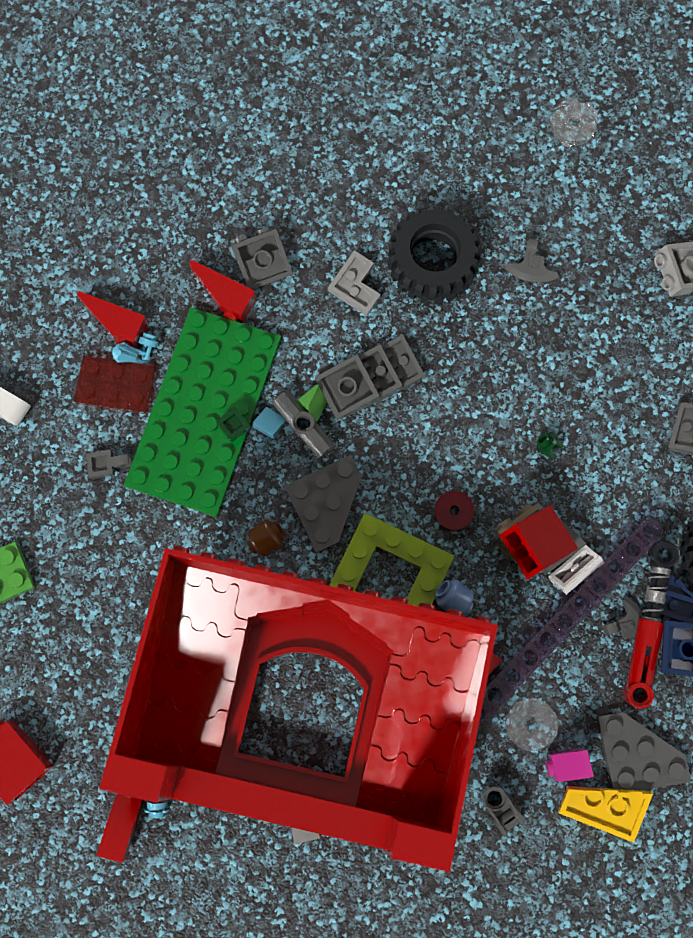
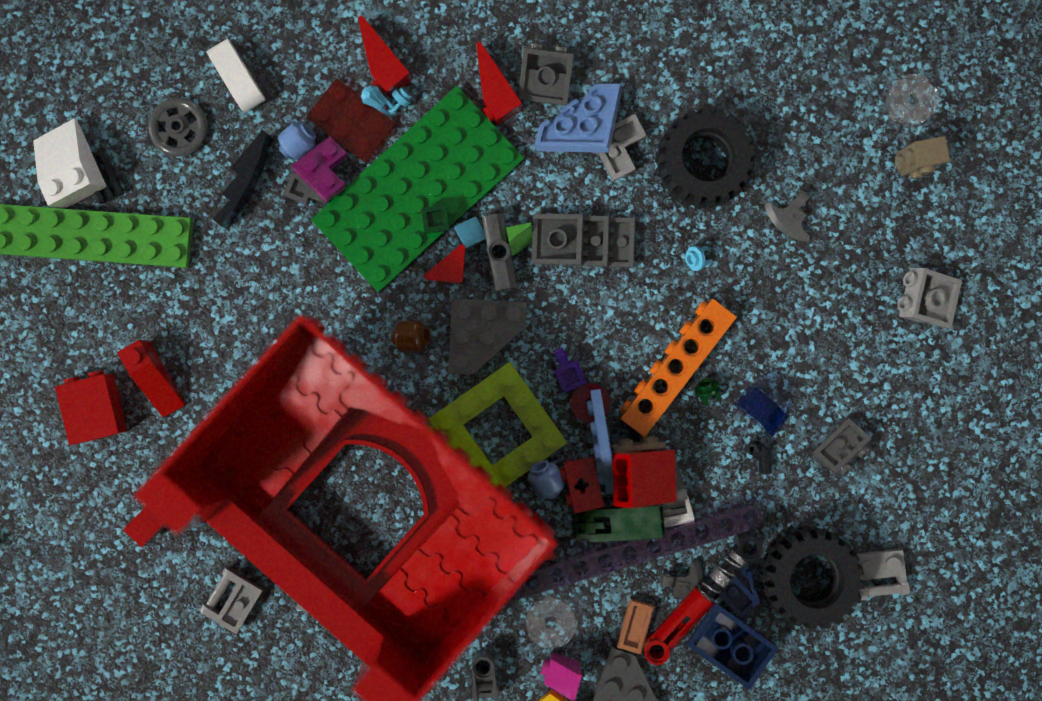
camera: 25 degrees right, 10 degrees up
(46, 472) = (249, 169): none -> black slope
(51, 702) = (151, 376): none -> red slope
(76, 425) = (296, 140): none -> medium blue head
(108, 440) = (317, 166): none -> magenta plate
(239, 869) = (238, 604): none -> light grey plate
(268, 463) = (450, 269): none -> red slope
(315, 281) = (583, 124): none -> medium blue plate
(421, 495) = (568, 374): none -> dark purple plate
(474, 340) = (696, 259): none -> medium azure plate
(485, 536) = (601, 441): none -> medium blue plate
(502, 588) = (591, 496): none -> red brick
(524, 380) = (720, 321): none -> orange brick
(545, 594) = (625, 523): none -> dark green hinge
(603, 435) = (761, 410): none -> clear blue slope
(607, 686) = (635, 625): none -> nougat tile
(610, 160) = (922, 157): none -> dark tan brick
(626, 473) = (762, 454): none -> black arm

